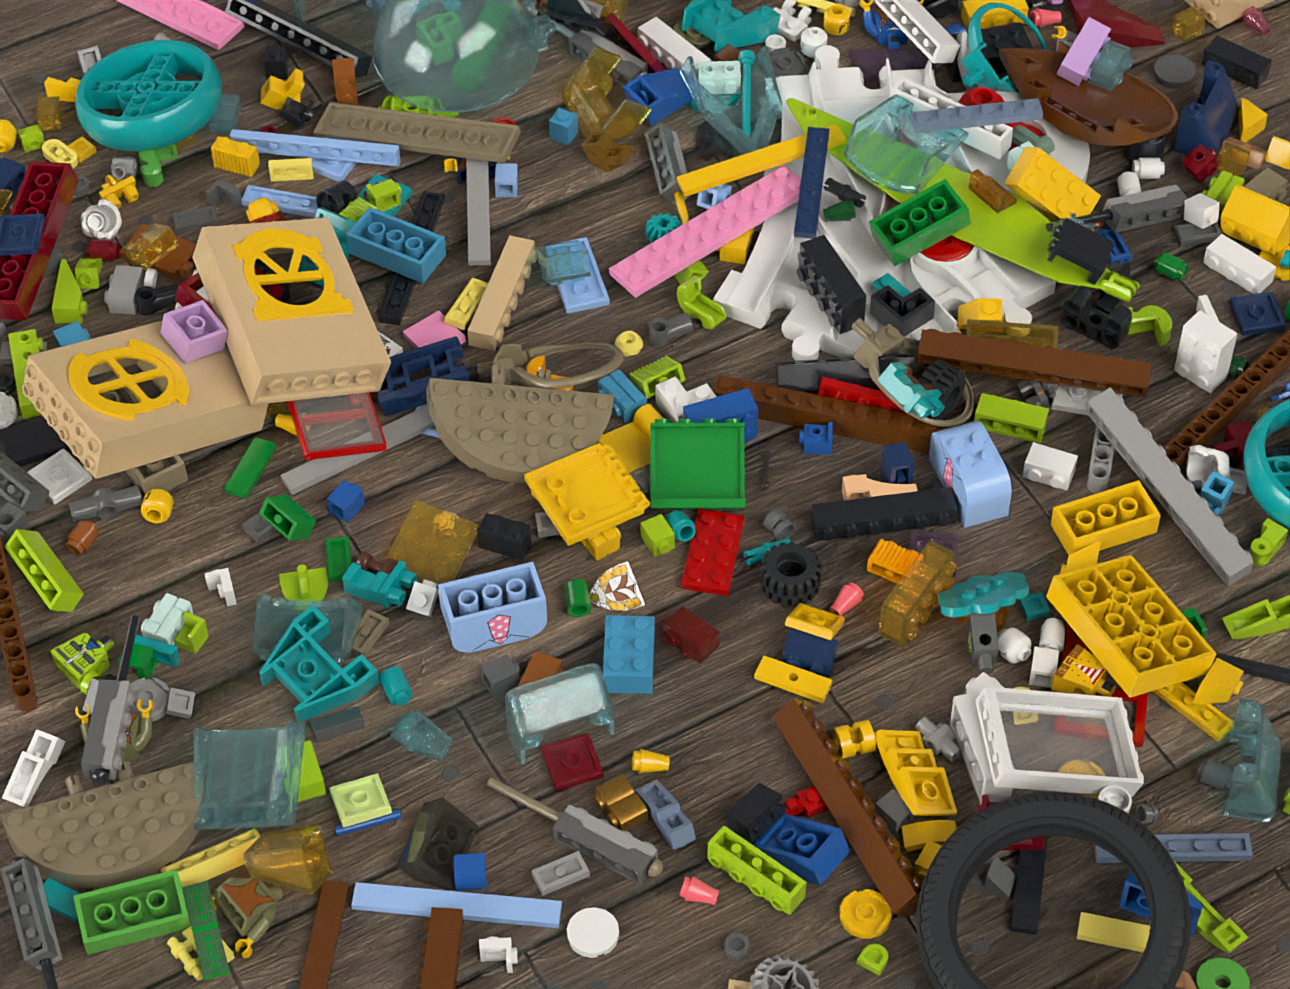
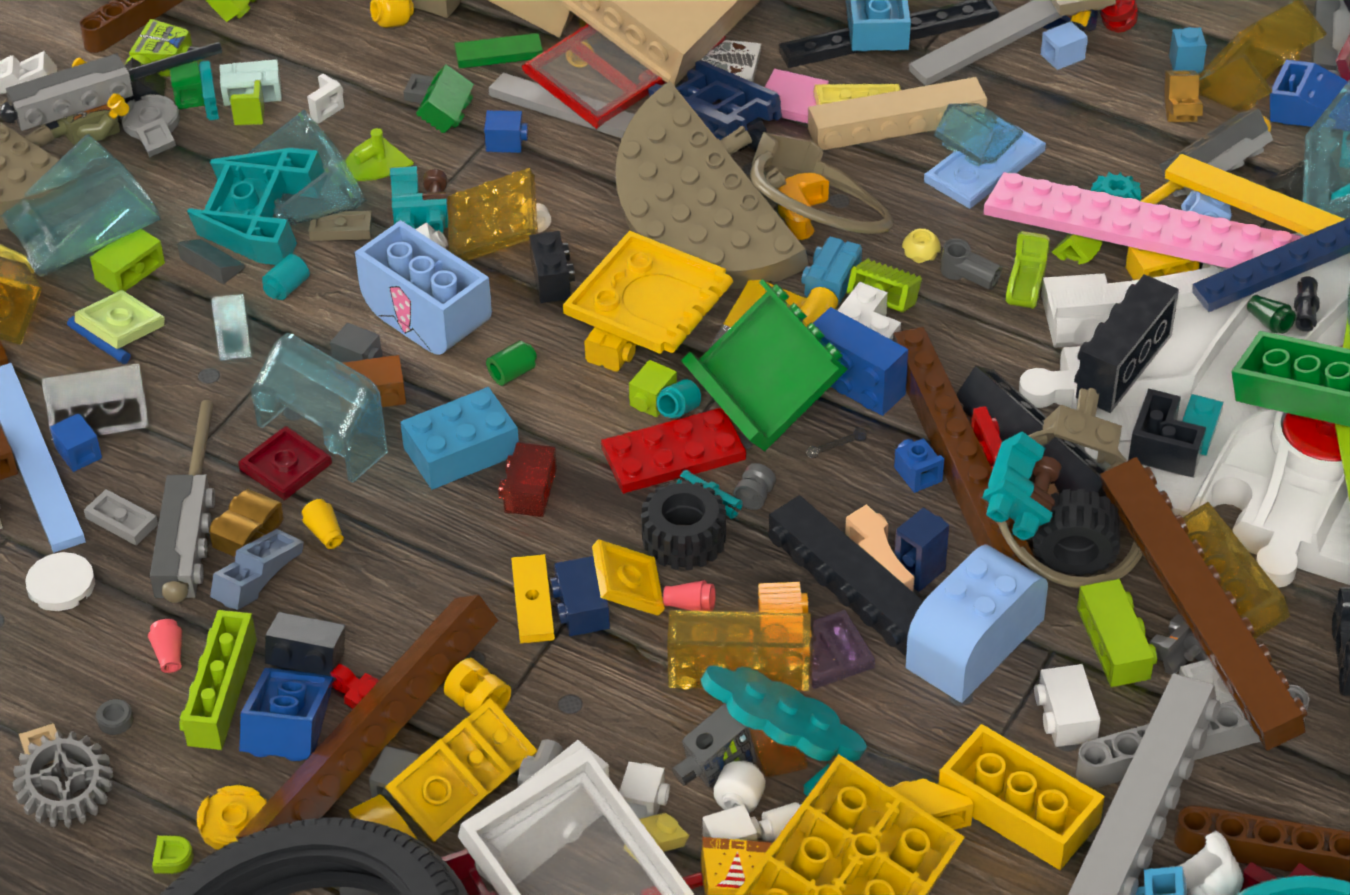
camera: 60 degrees right, 5 degrees down
(338, 557) = (439, 157): green tile -> none
(617, 589) = (542, 385): shield -> none
(981, 309) = (1245, 520): yellow slope -> none

